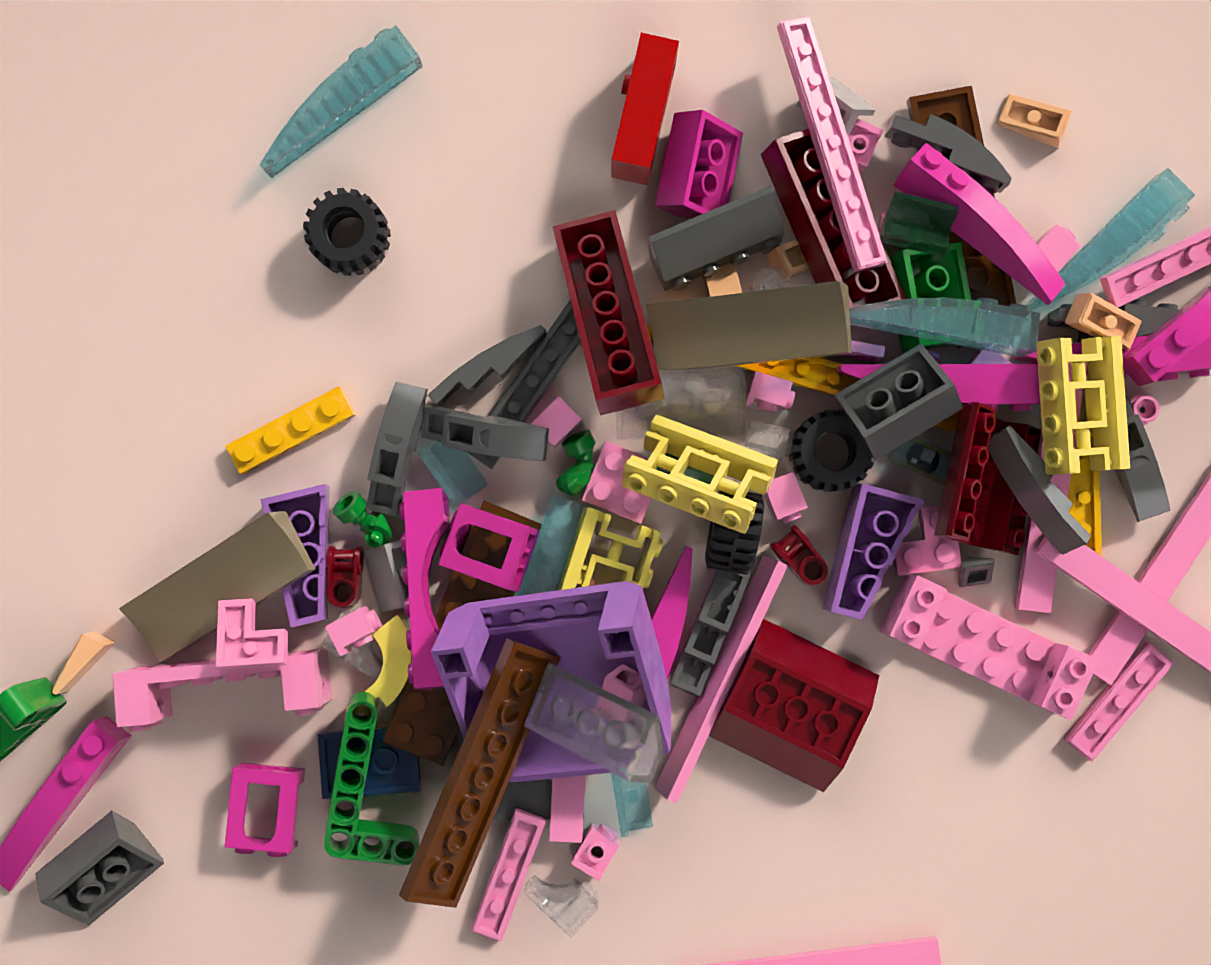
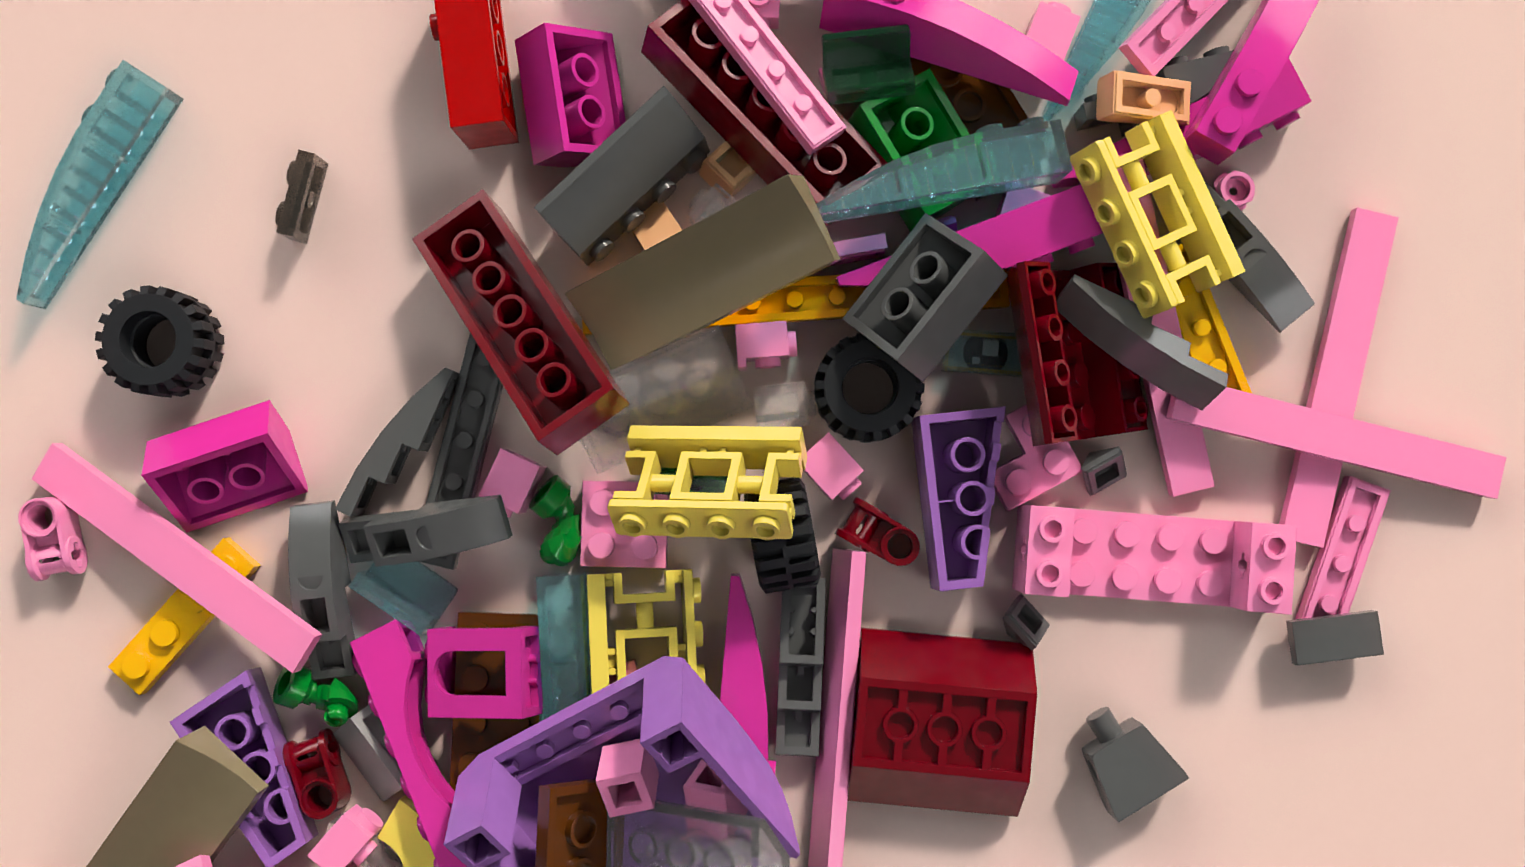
camera: 20 degrees left, 0 degrees up
(218, 343) = (52, 540): none -> bright pink piece
(304, 387) = (177, 557): none -> bright pink tile
(359, 336) = (224, 466): none -> dark pink slope
(488, 158) = (305, 184): none -> clear smoke plate
(569, 656) = (627, 778): none -> bright pink brick
(879, 658) = (1025, 623): none -> dark grey slope
(915, 784) = (1128, 764): none -> dark grey torso
(1095, 751) = (1335, 637): none -> dark grey tile

